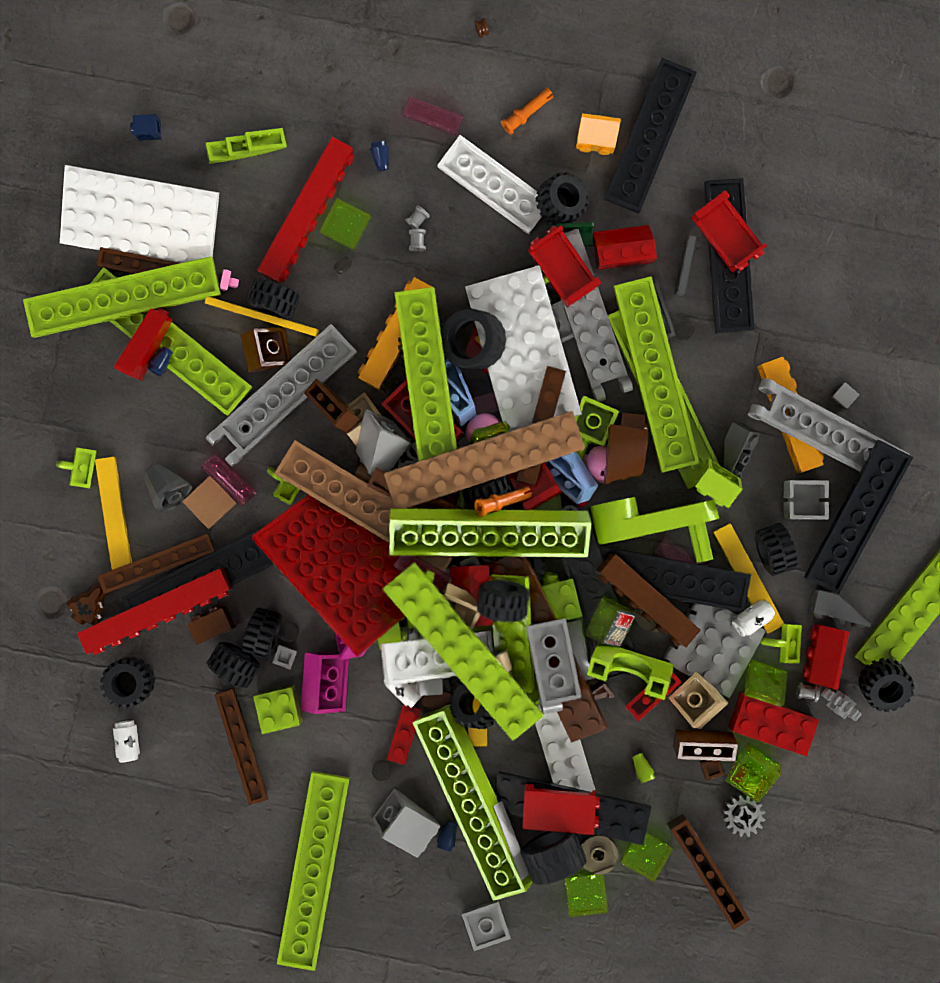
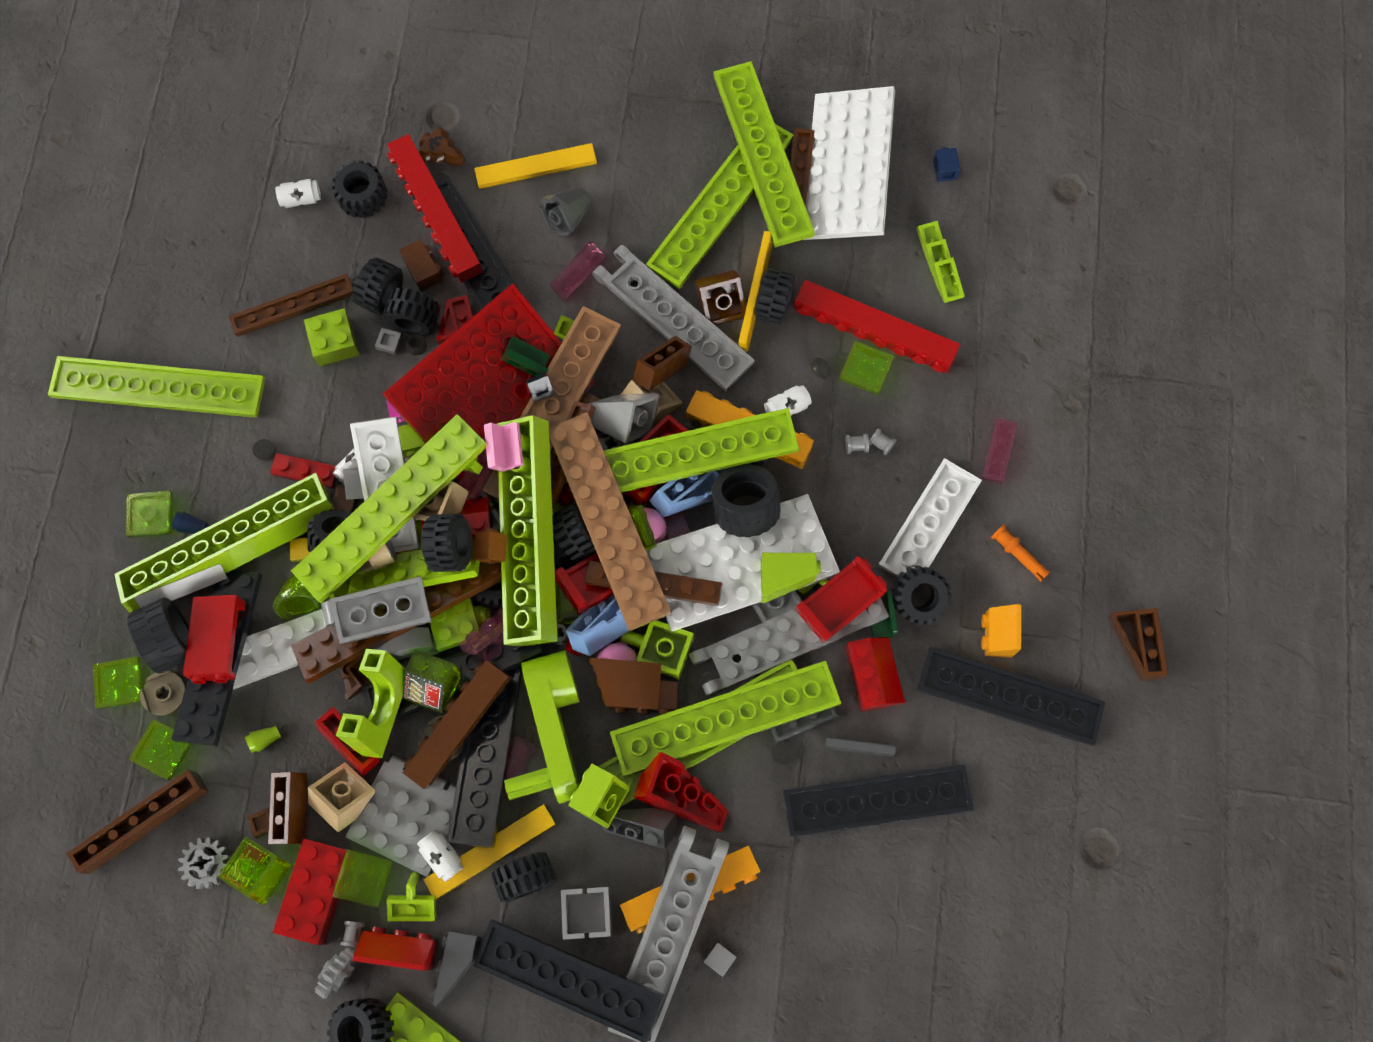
camera: 90 degrees right, 15 degrees down
(80, 468) = (582, 130): lime plate -> none
(144, 344) = (712, 174): red slope -> none
(156, 563) = (485, 207): reddish brown plate -> none
(160, 361) = (698, 193): dark blue cone -> none
(209, 502) = (551, 254): medium nougat tile -> none
(225, 281) = (791, 251): bright pink tile -> none
(269, 593) = (456, 315): none -> red wing
(322, 527) = (525, 357): none -> dark green panel
(324, 683) = (359, 382): dark pink slope -> none
(353, 515) = (540, 387): none -> plate
(375, 297) = (796, 395): none -> white piece
(380, 154) = (948, 398): dark blue cone -> none
(405, 823) = (203, 477): light grey slope -> none
(414, 548) = (503, 446): none -> bright pink panel
(435, 873) = (149, 514): none -> clear neon green plate
(481, 28) = (1107, 495): reddish brown bush -> none
(486, 925) = (88, 573): light grey plate -> none
(495, 502) = (560, 533): orange pin -> none
(503, 564) = (490, 546): none -> dark orange brick
(524, 743) = (294, 600): none -> clear neon green helmet
(541, 310) = (786, 573): none -> lime slope
(572, 573) = (484, 635): none -> clear pink plate
(614, 18) = (1142, 641): none -> reddish brown wedge
(712, 421) = (673, 789): none -> red wedge
(728, 232) = (904, 794): red panel -> none

